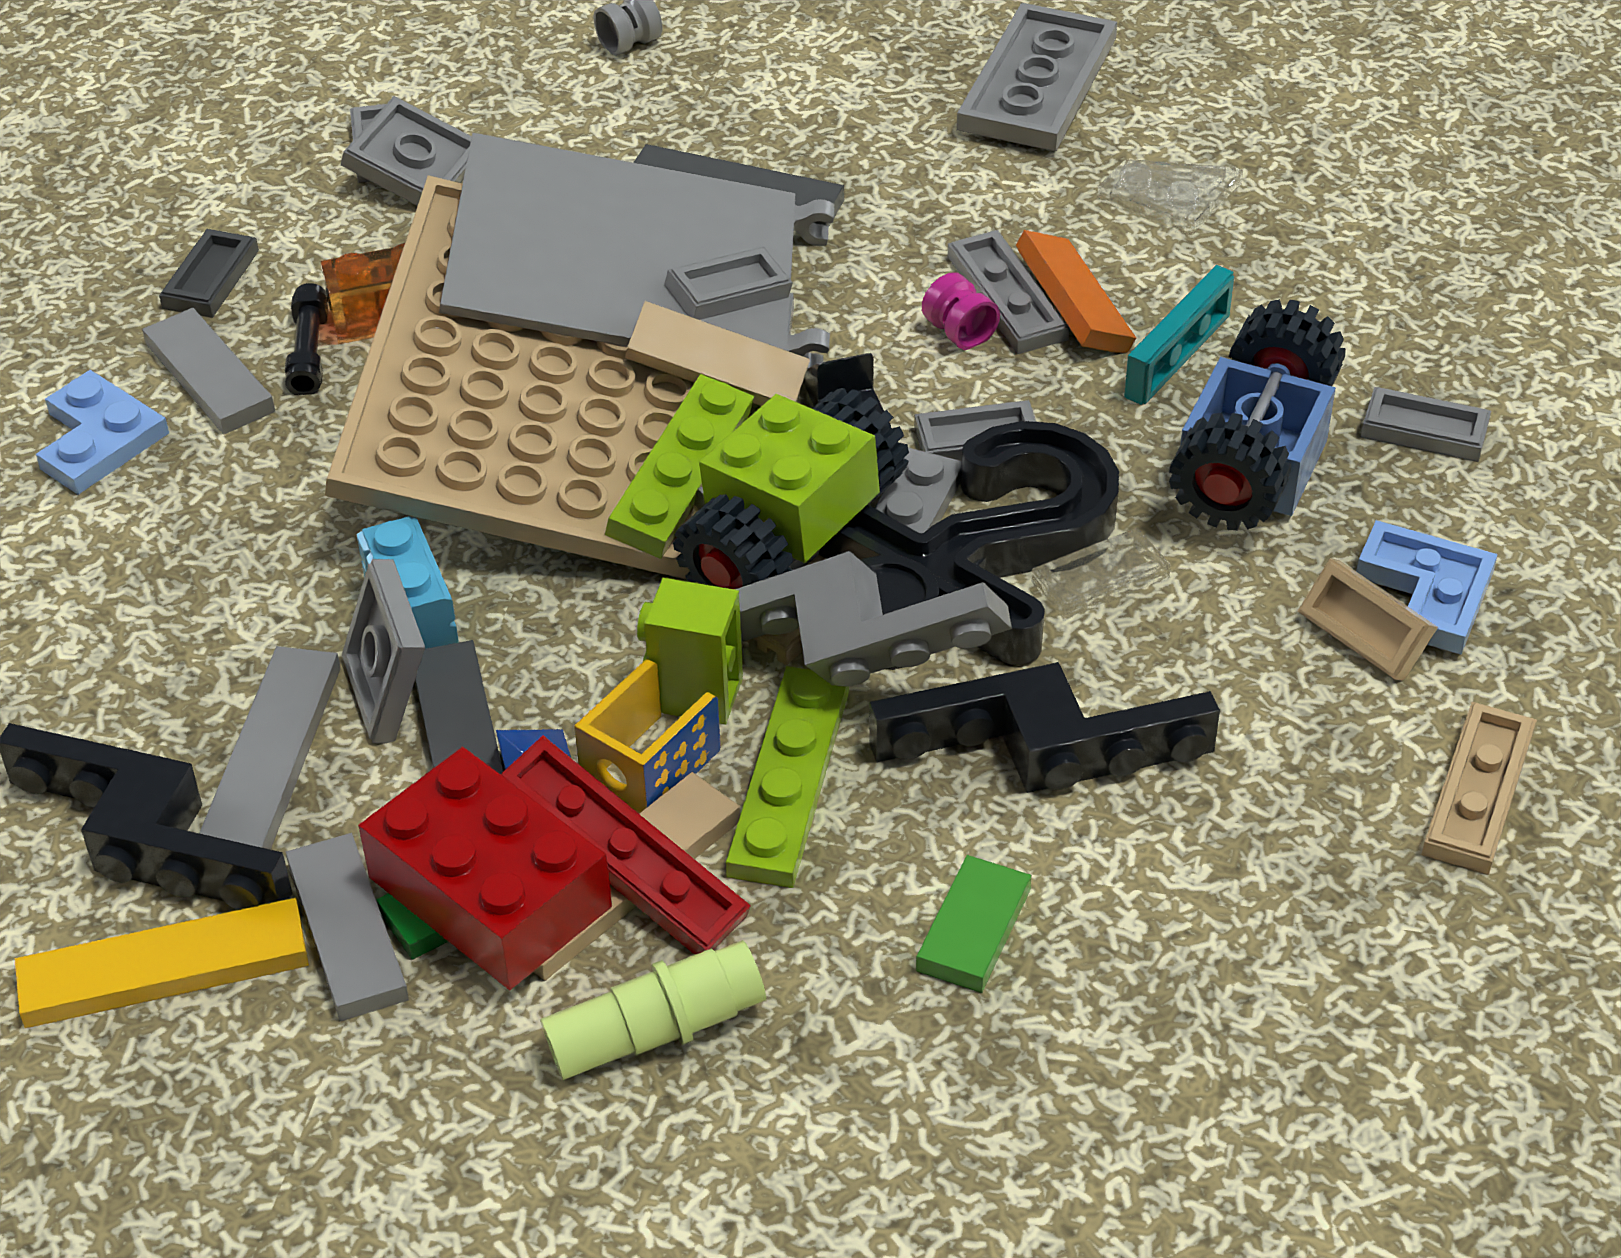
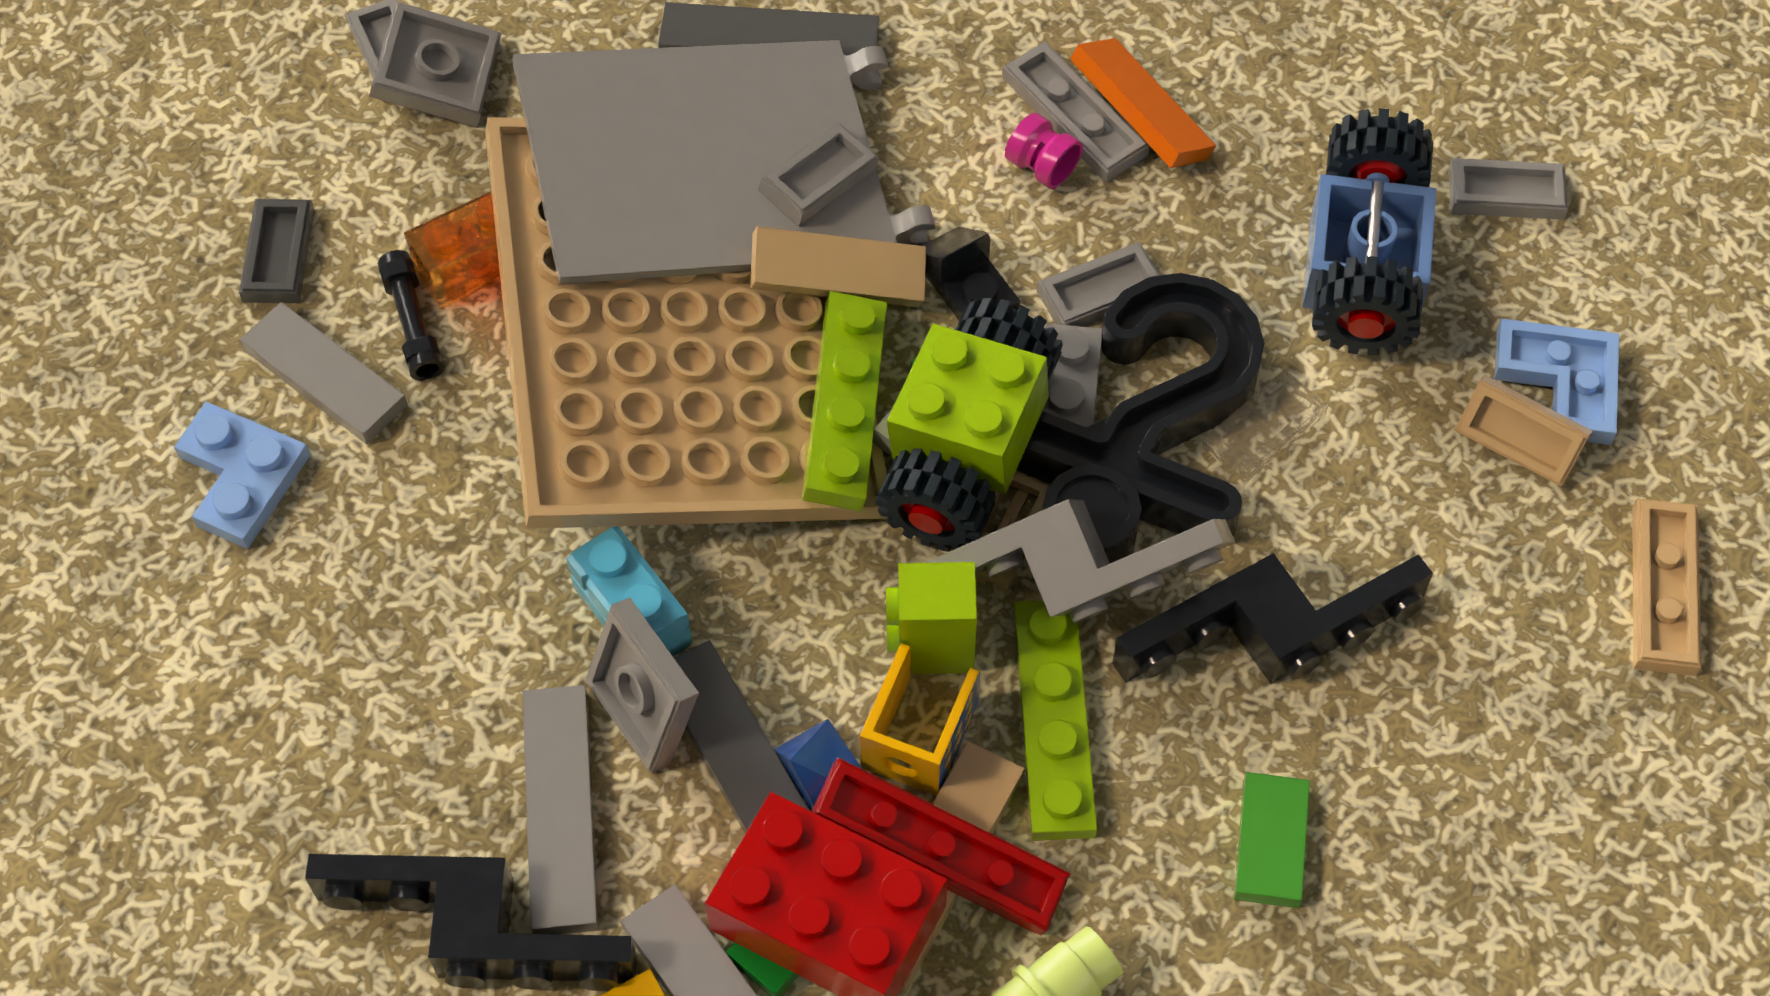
camera: 15 degrees left, 15 degrees up
(1179, 335) = (1258, 137): teal tile -> none

